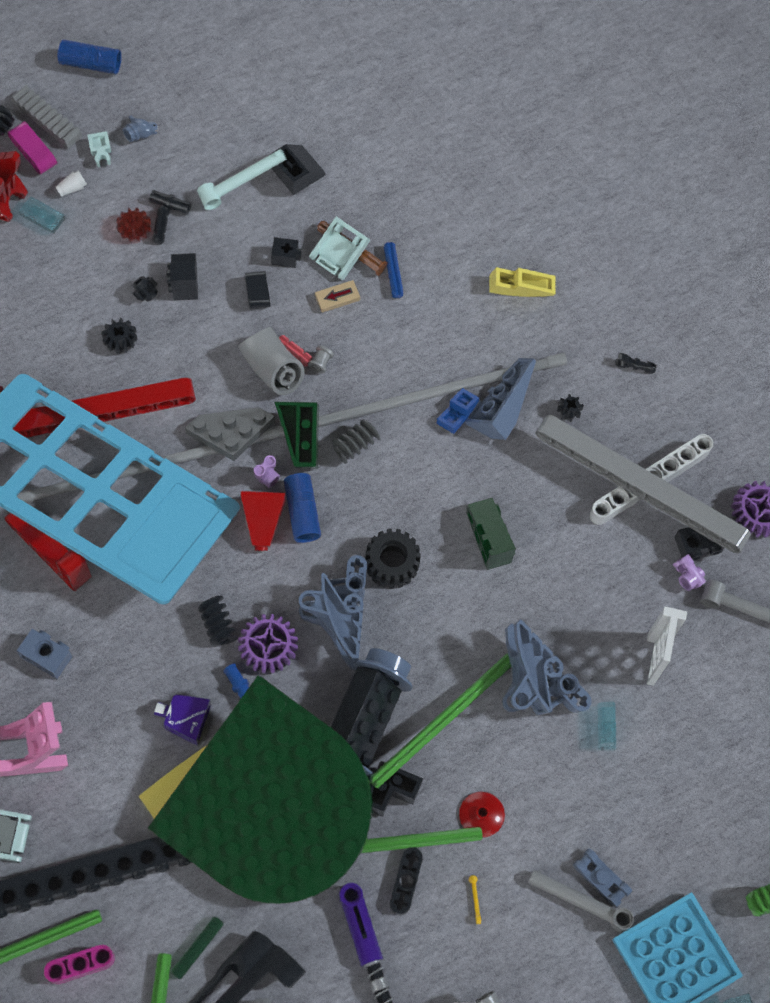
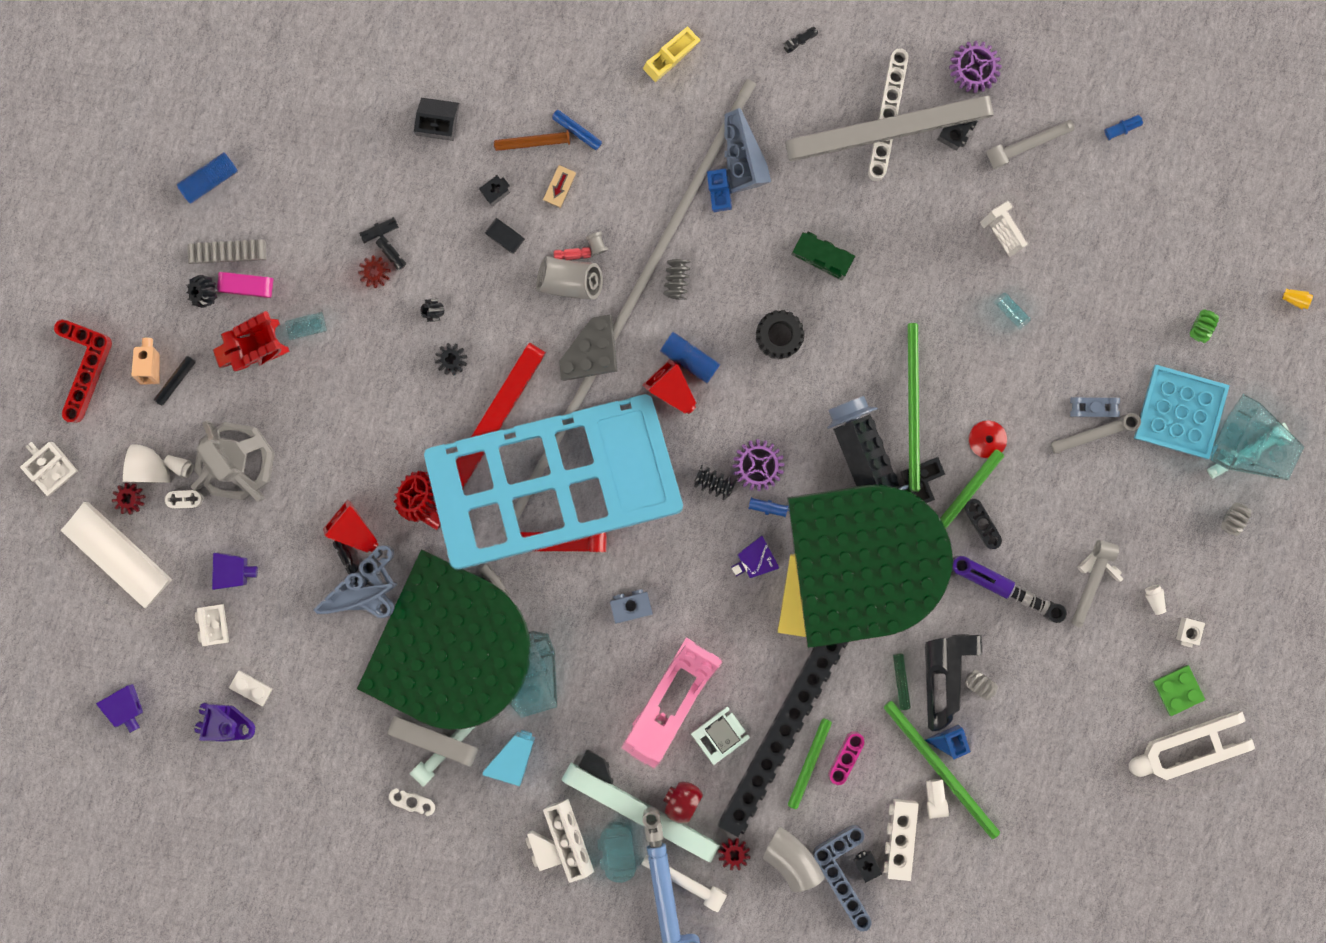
camera: 45 degrees left, 20 degrees up
(72, 183) = (300, 283): white cone -> none
(100, 147) = (287, 236): light aqua plate -> none
(139, 129) = (300, 197): sand blue animal -> none
(182, 276) = (448, 275): black brick -> none
(211, 194) = (400, 197): light aqua piece -> none
(265, 472) = (644, 357): lavender plate -> none
(301, 431) = (639, 309): dark green wedge -> none
(338, 252) = (528, 154): light aqua container -> none
(340, 621) = (783, 408): sand blue piece -> none
(473, 880) = (1020, 483): yellow hinge -> none
(533, 670) = (943, 326): sand blue piece -> none
(575, 408) = (793, 111): black gear -> none
(692, 575) = (973, 157): lavender plate -> none

